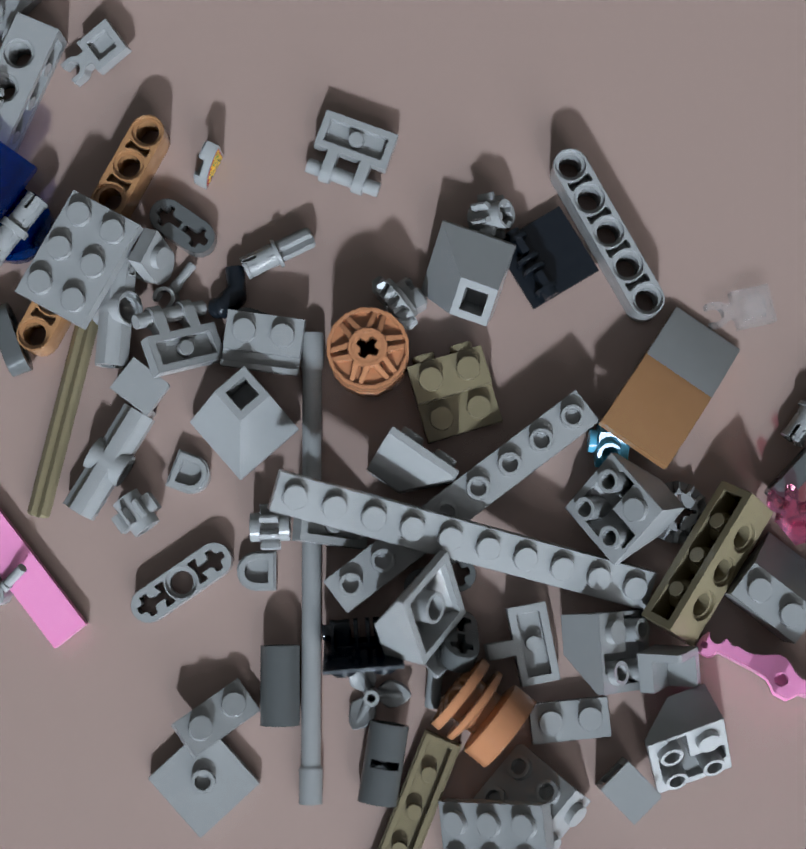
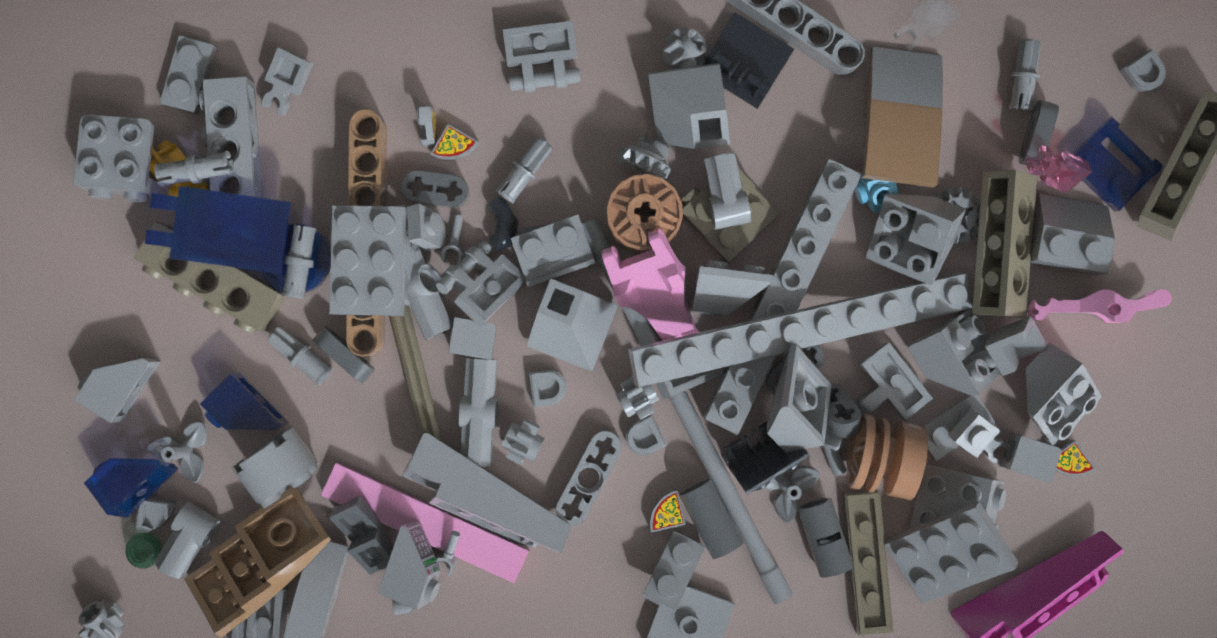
camera: 30 degrees left, 5 degrees up
(67, 546) = (483, 498): none -> light grey wedge
(223, 194) = (453, 144): none -> tile
(241, 657) = (667, 512): none -> tile
(339, 424) = (652, 286): none -> bright pink animal
(455, 378) = (727, 202): none -> light grey piece
(586, 739) = (978, 435): none -> light grey plate
(670, 816) = (1074, 460): none -> tile

